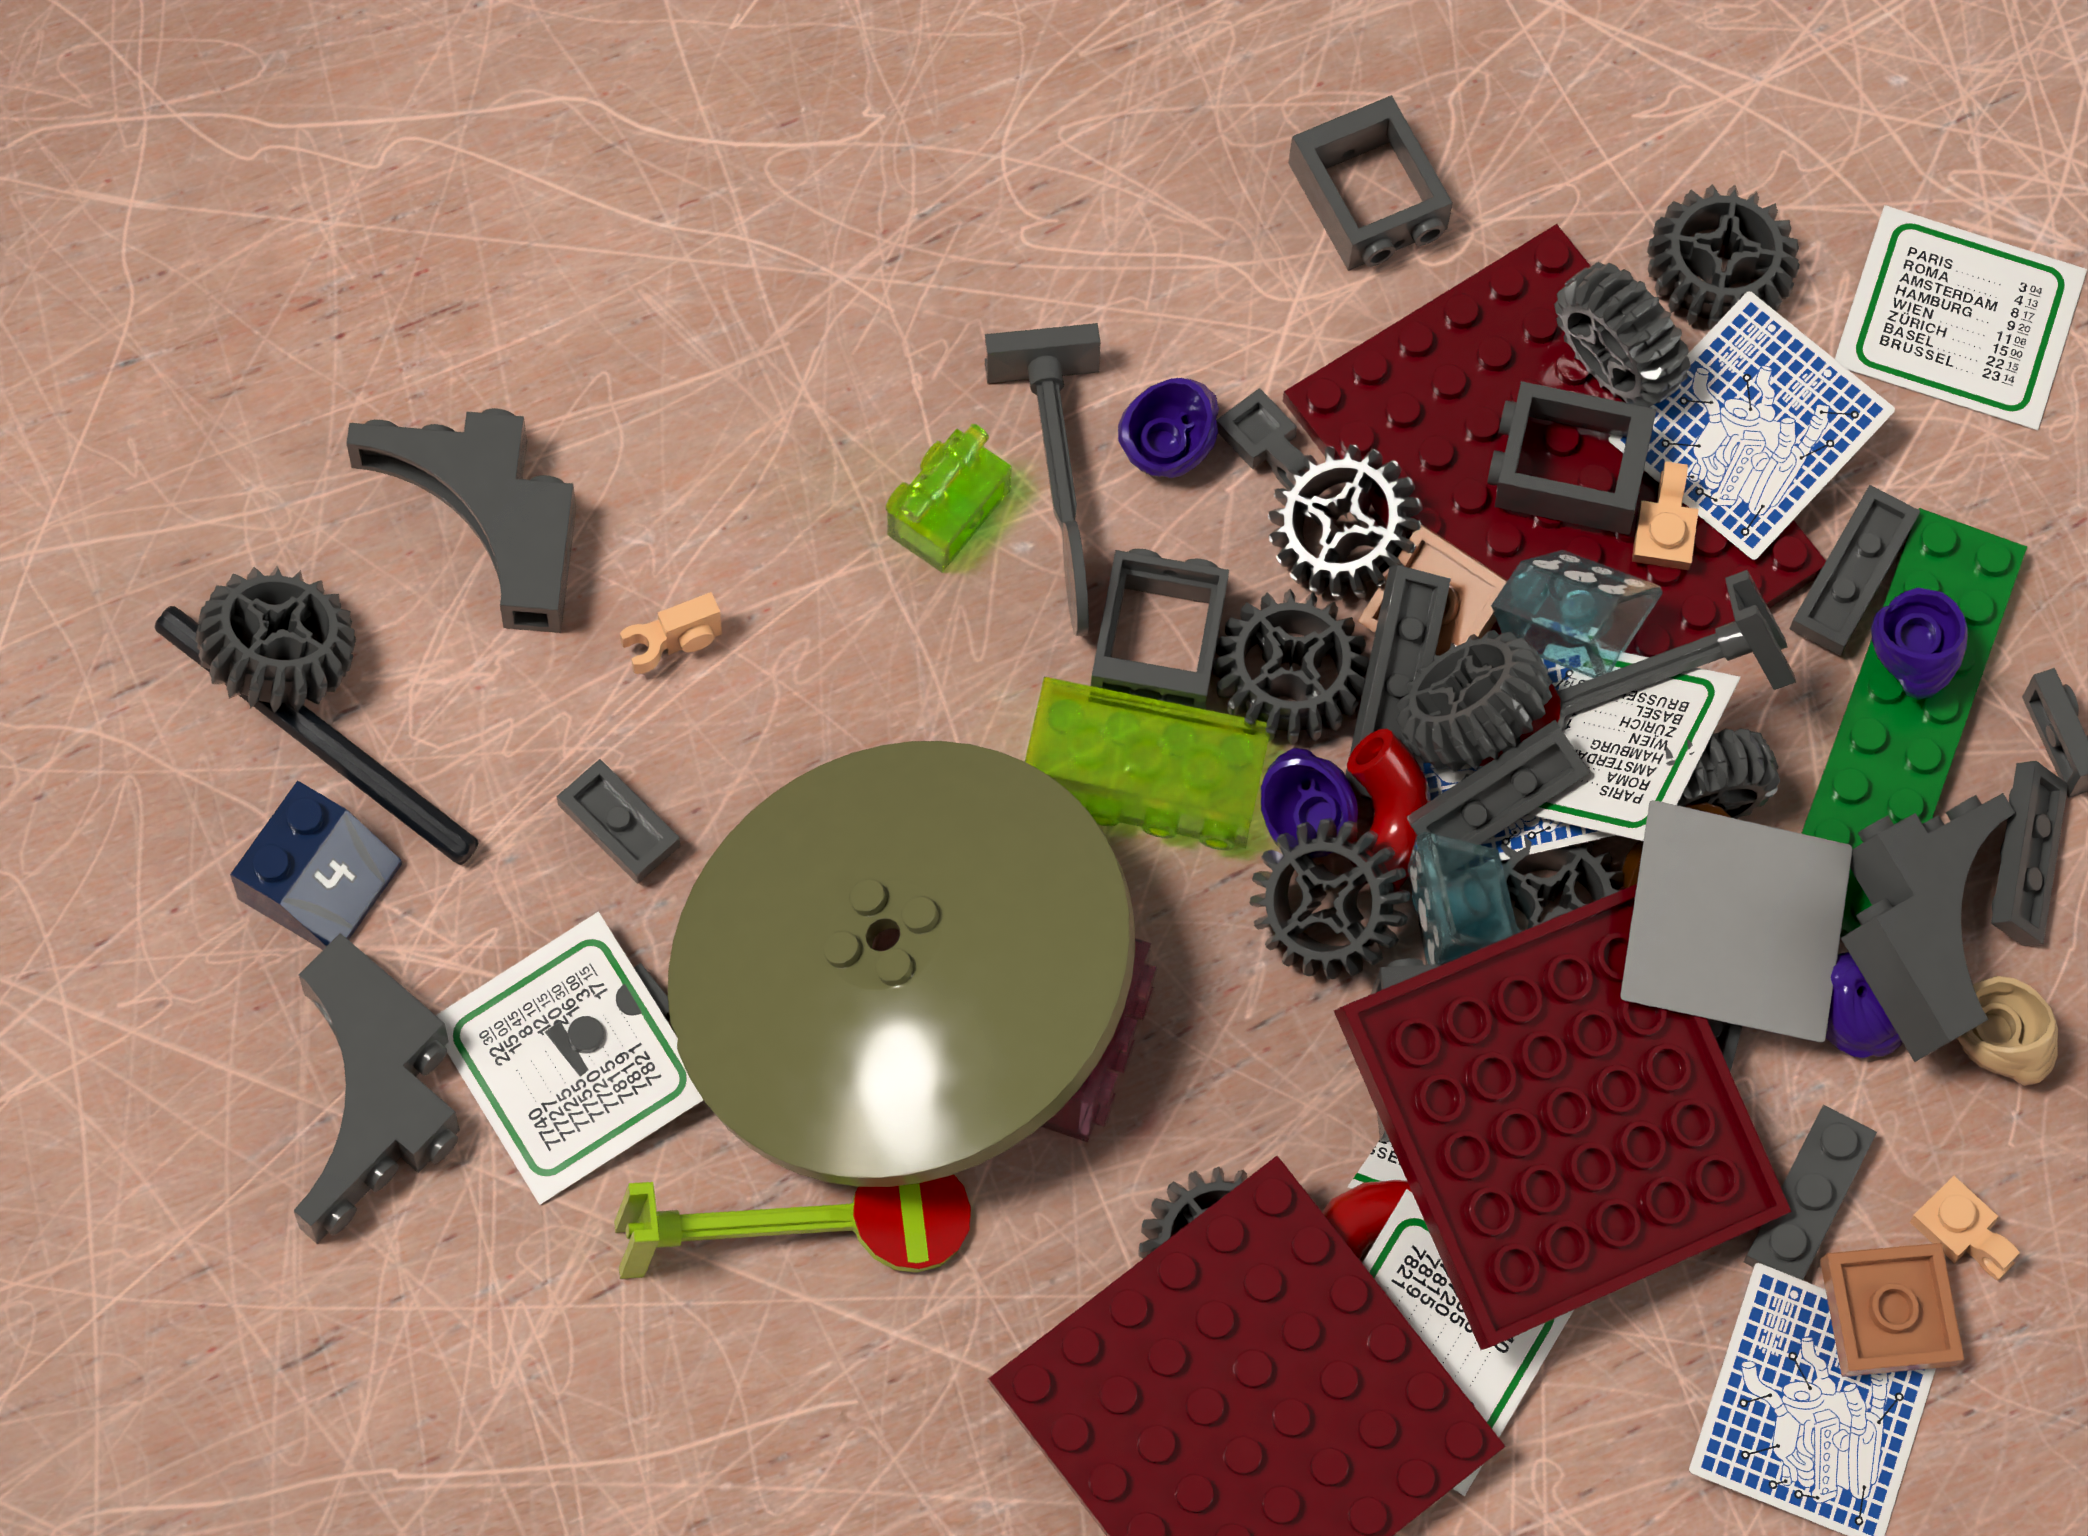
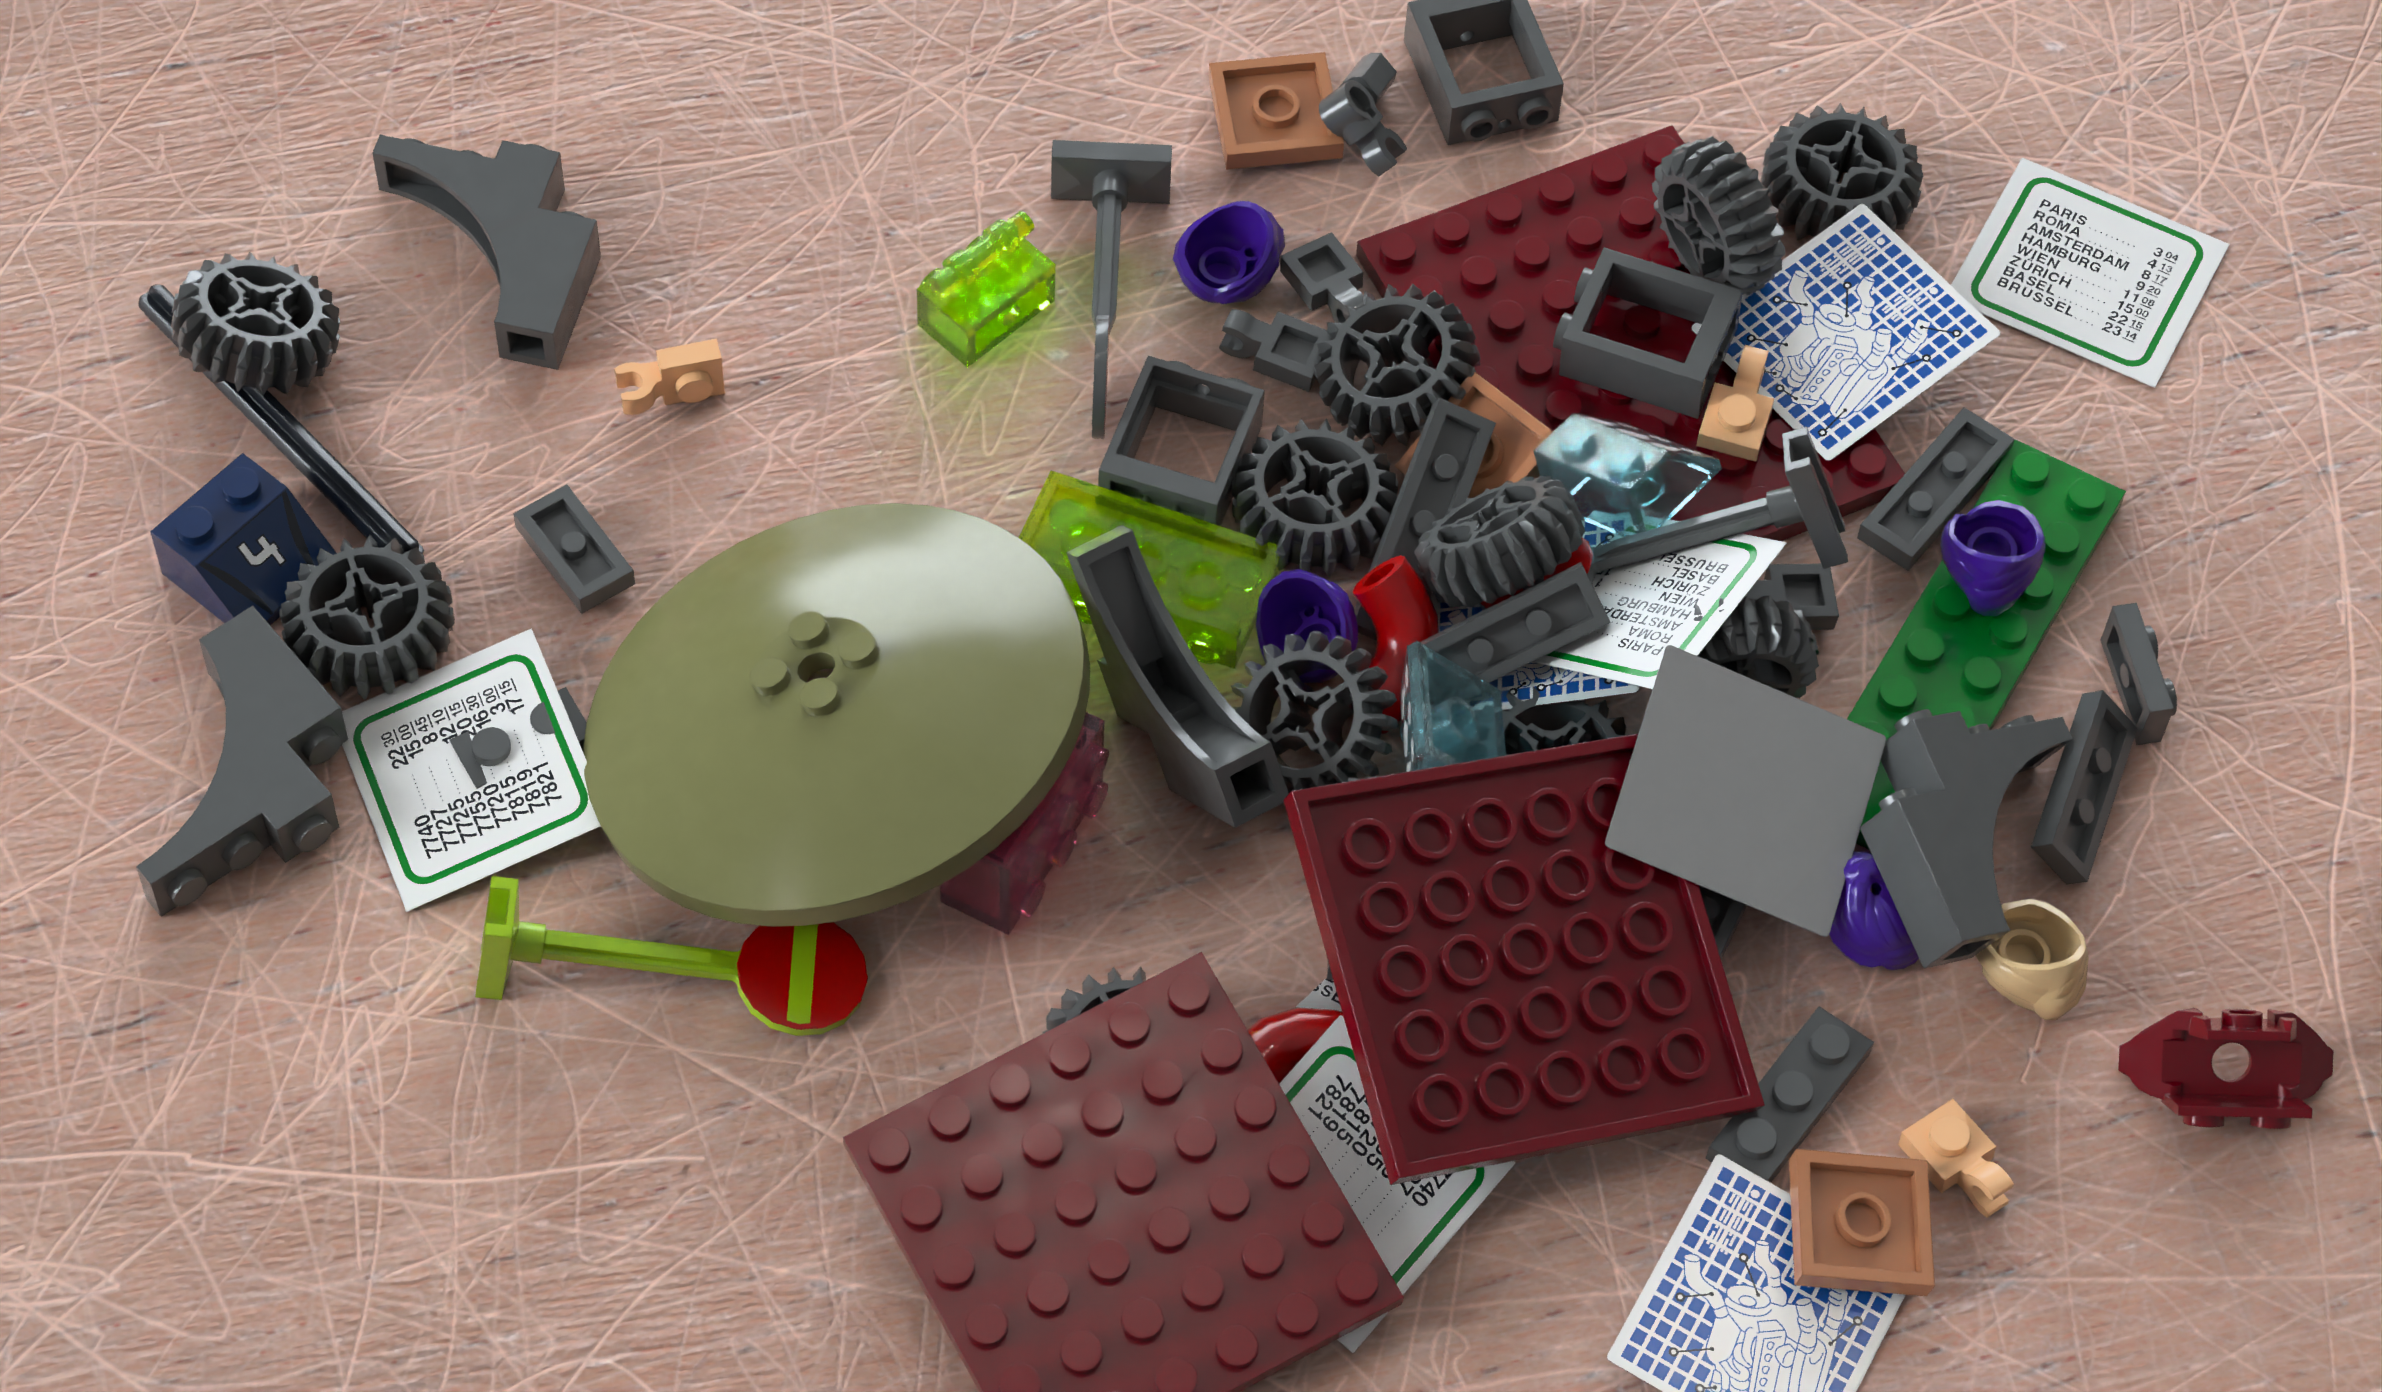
camera: 10 degrees right, 10 degrees down
(465, 910) = (400, 594): none -> dark grey gear
(1183, 263) = (1272, 110): none -> nougat plate
(1194, 893) = (1163, 690): none -> dark grey arch
(1236, 514) = (1281, 350): none -> dark grey plate
(1259, 260) = (1354, 116): none -> dark grey bar
(1753, 702) = (1807, 589): none -> dark grey plate

